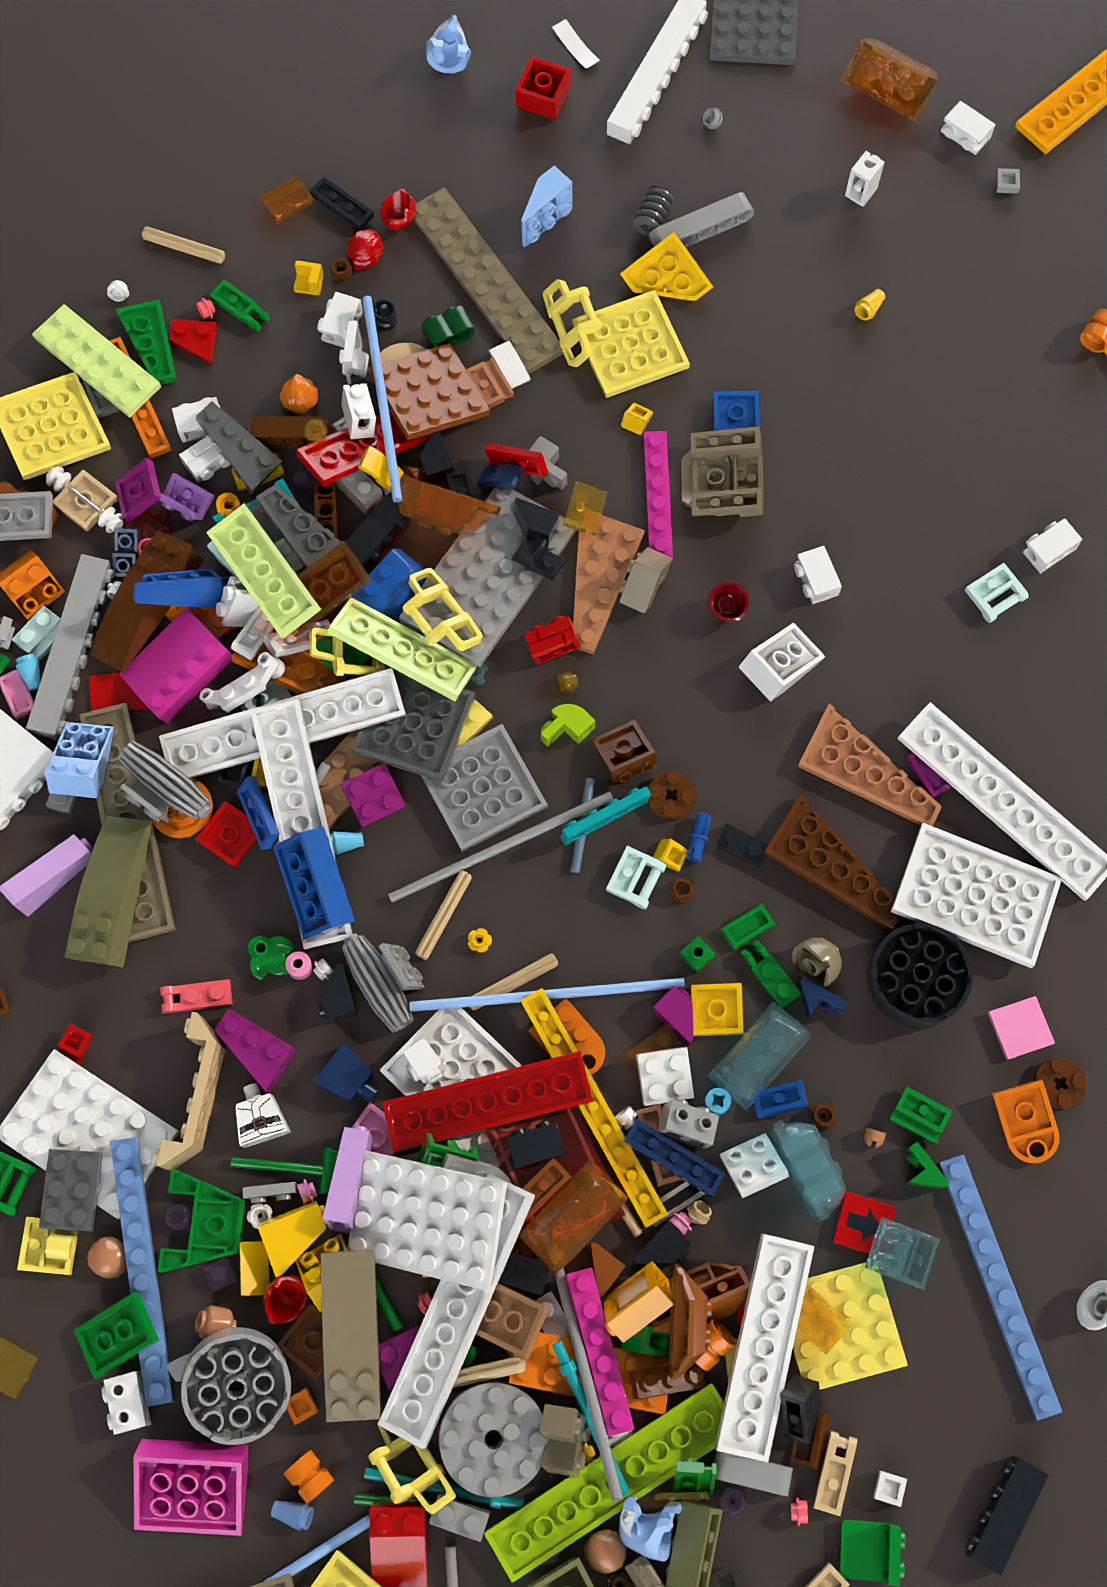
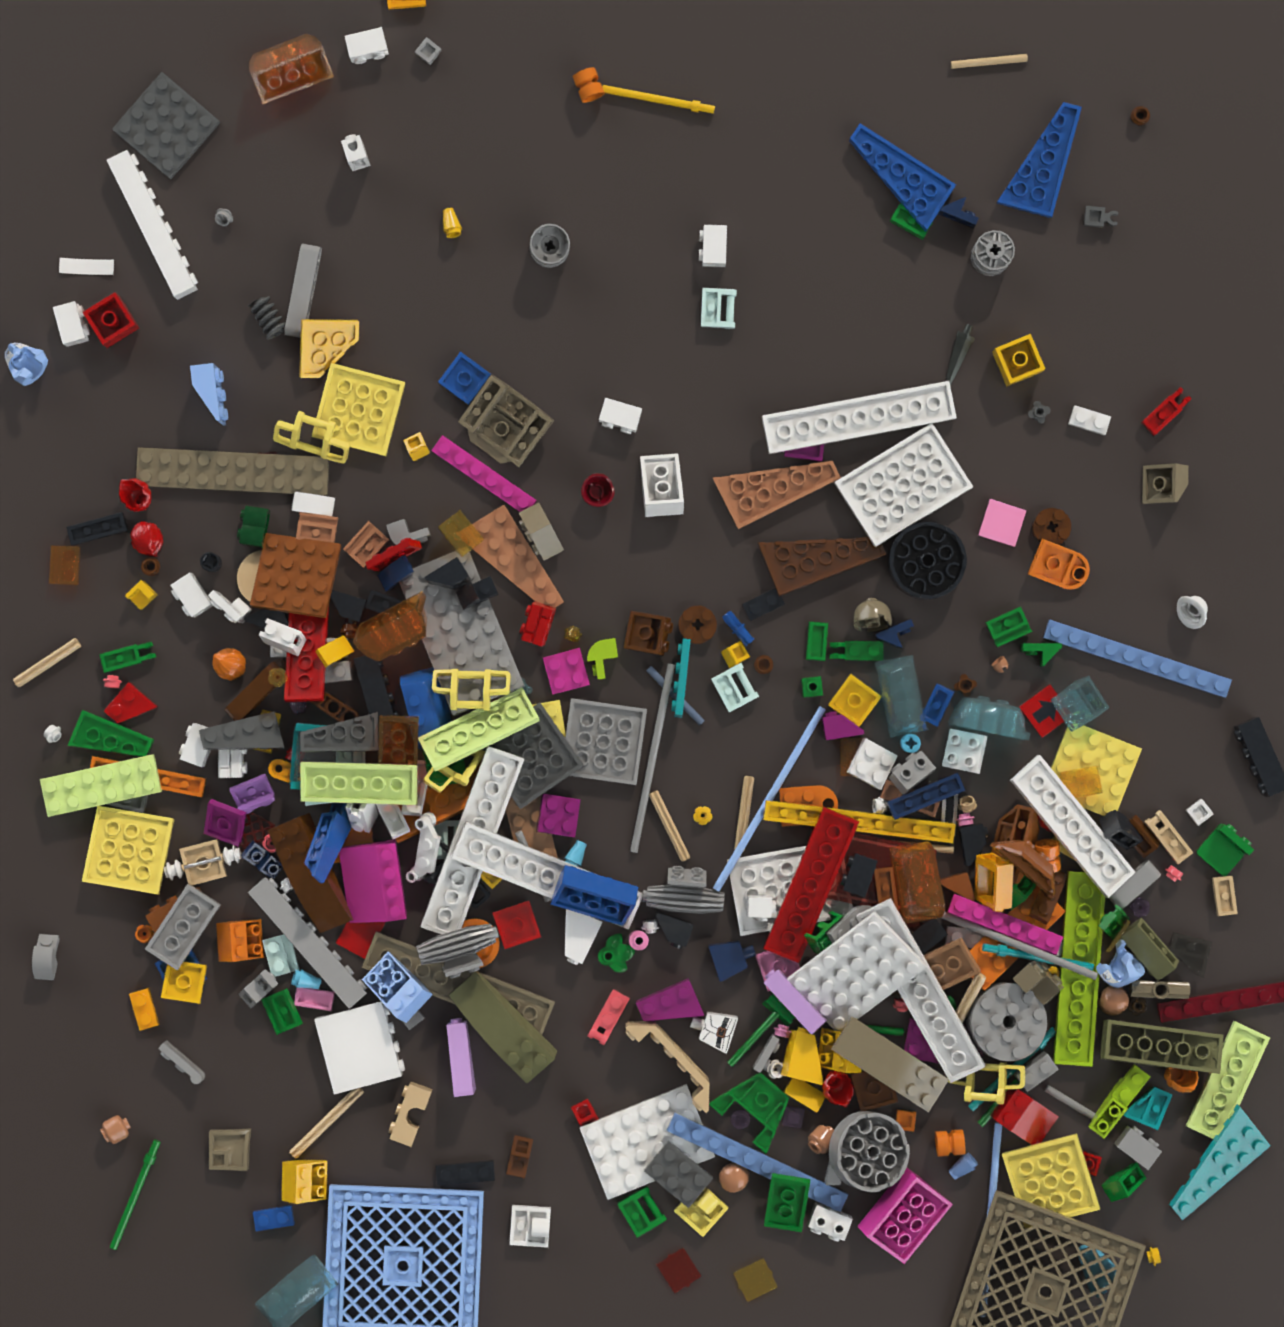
camera: 55 degrees left, 15 degrees up
(258, 813) = (518, 898): blue plate -> none
(262, 904) = (579, 935): none -> white slope
(382, 399) = (282, 613): light blue piece -> none
(508, 433) = (366, 544): none -> nougat plate
(511, 62) = (71, 324): none -> white brick
(526, 703) = (566, 671): none -> dark pink plate
(933, 391) = (543, 236): none -> light grey wheel

